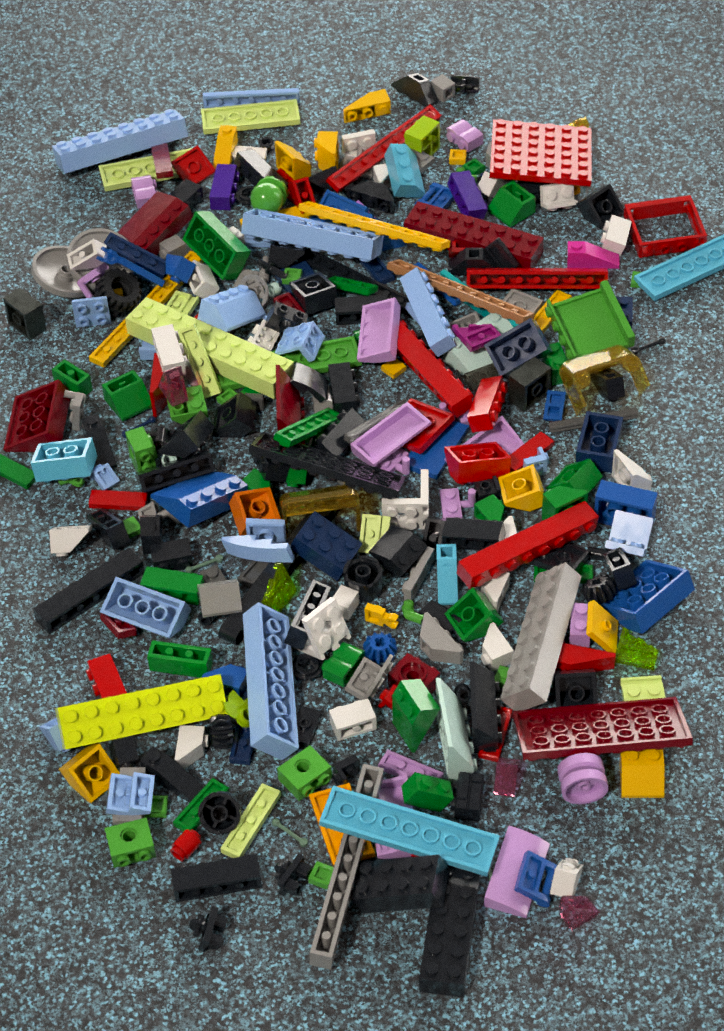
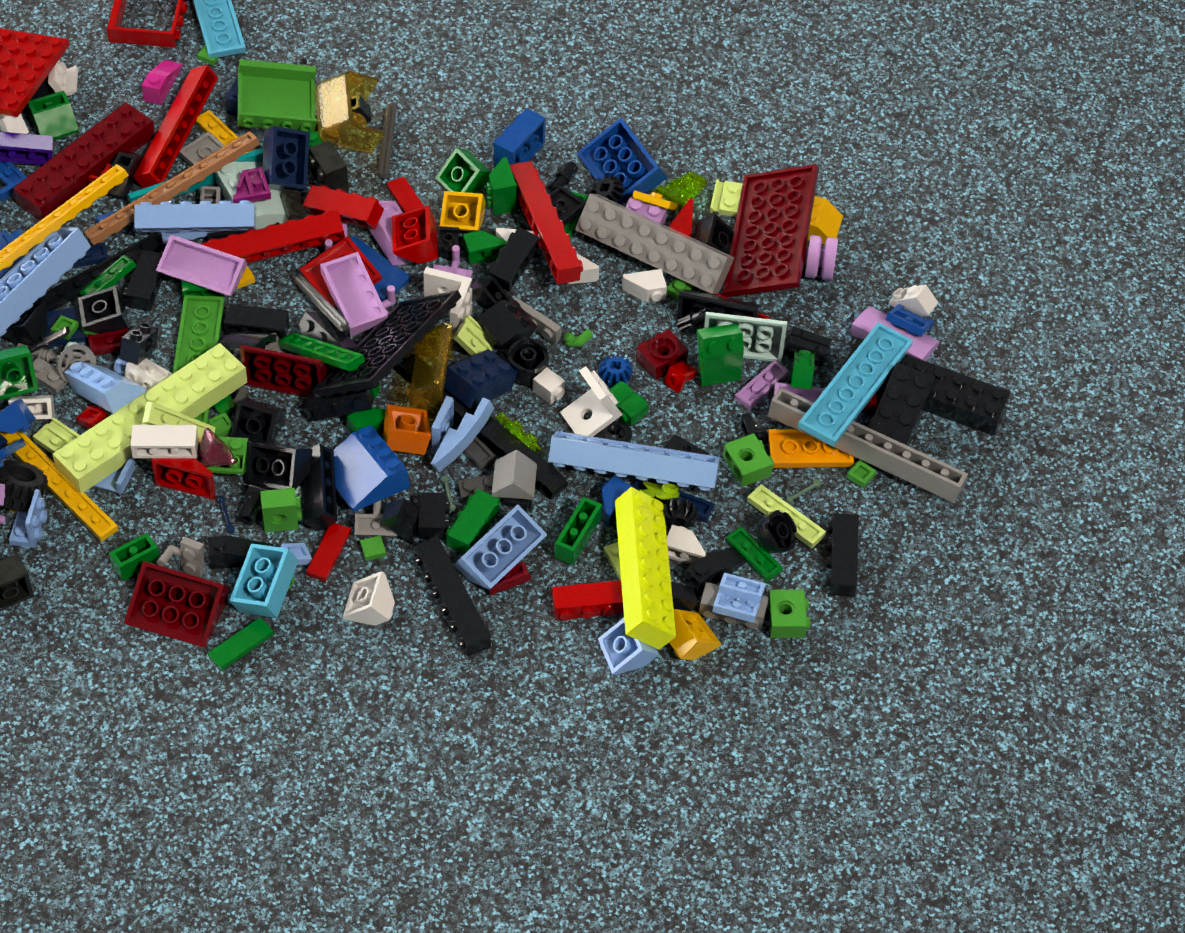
camera: 80 degrees left, 5 degrees up
(109, 528) = (382, 556): black slope -> none
(126, 395) = (183, 511): green slope -> none
(185, 845) = (798, 572): red brick -> none
(213, 920) = (898, 571): black hips -> none
(288, 874) = (854, 497): black hips -> none
(303, 337) = (176, 339): light blue bracket -> none
(314, 598) = (565, 411): black brick -> none
(352, 719) = (694, 411): white brick -> none
(368, 678) = (655, 381): light grey bracket -> none
(377, 615) = (574, 364): yellow plate -> none
(438, 611) = (590, 319): black tile -> none
(438, 642) = (622, 326): light grey slope -> none
(447, 574) = (546, 297): medium azure slope -> none
(476, 615) = (604, 291): green slope -> none
(501, 254) = (133, 142): black tile -> none
(506, 776) = (792, 312): clear pink slope -> none
(539, 461) = (426, 192): light blue bracket -> none
(554, 405) = (360, 166): blue slope -> none
(576, 910) = (949, 305): clear pink slope -> none
(599, 439) = (425, 140): dark blue brick -> none
(600, 206) = (92, 50): black slope -> none
(616, 234) = (144, 49): white brick -> none
(619, 569) = (590, 167): black brick -> none
(629, 473) = (478, 132): white slope -> none
(630, 533) = (551, 152): light blue bracket -> none

